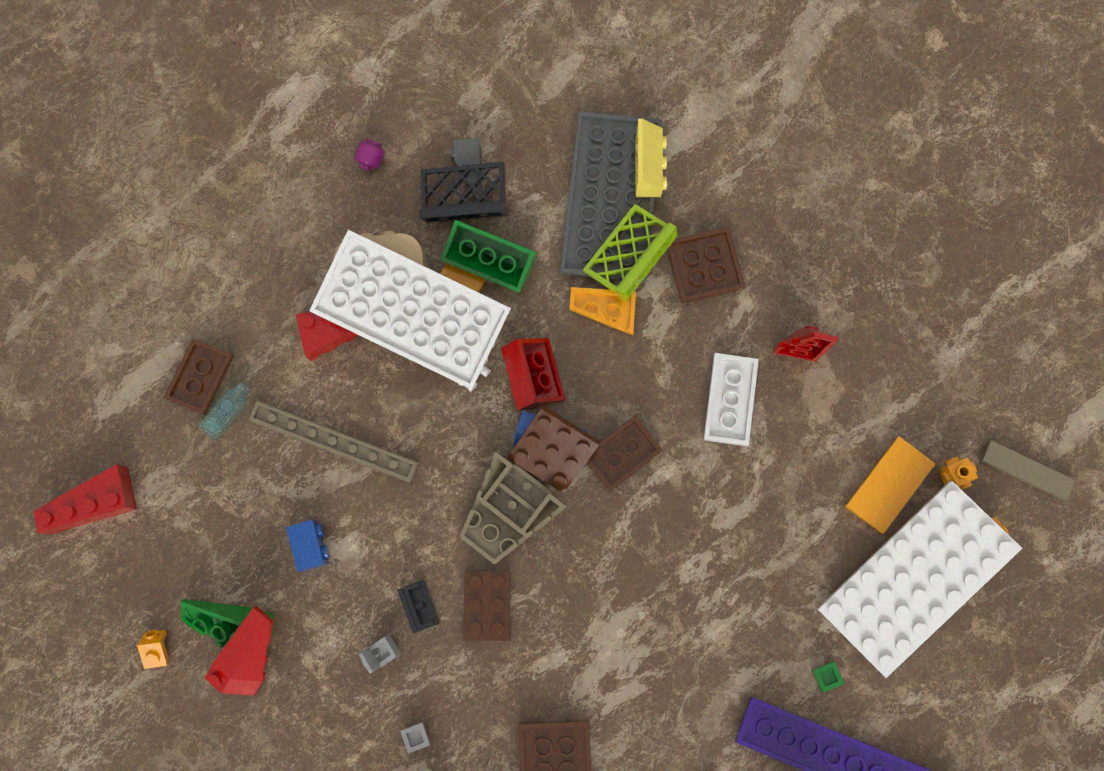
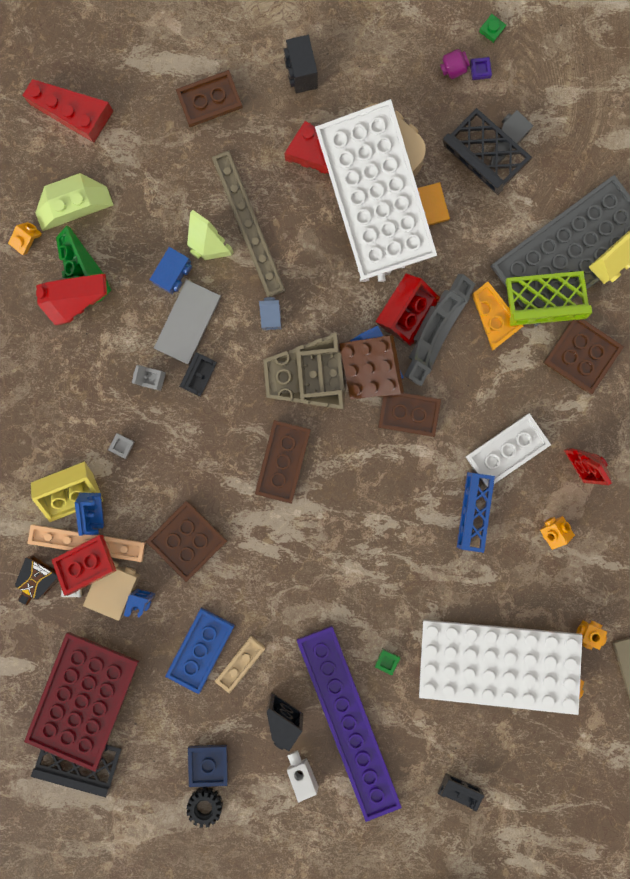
camera: 40 degrees right, 10 degrees up
(164, 576) = (71, 200): none -> yellowish green wedge
(225, 411) = (203, 137): clear light blue hinge -> none
(247, 275) = (301, 64): none -> black brick
(311, 490) = (205, 240): none -> yellowish green wedge
(364, 573) = (187, 322): none -> light grey tile
(370, 101) = (492, 28): none -> green plate
(392, 138) = (480, 68): none -> dark purple tile
(426, 493) = (270, 314): none -> sand blue slope
(486, 606) = (237, 416): reddish brown plate -> none
(489, 256) = (459, 208): green slope -> none
(563, 603) = (282, 461): none -> reddish brown plate
(570, 364) = (436, 328): none -> dark grey piece
(753, 479) = (468, 510): none -> blue fence
(840, 421) = (557, 532): none -> light orange brick
(890, 485) = (544, 598): light orange tile -> none
(1007, 720) = (461, 792): none -> black hinge

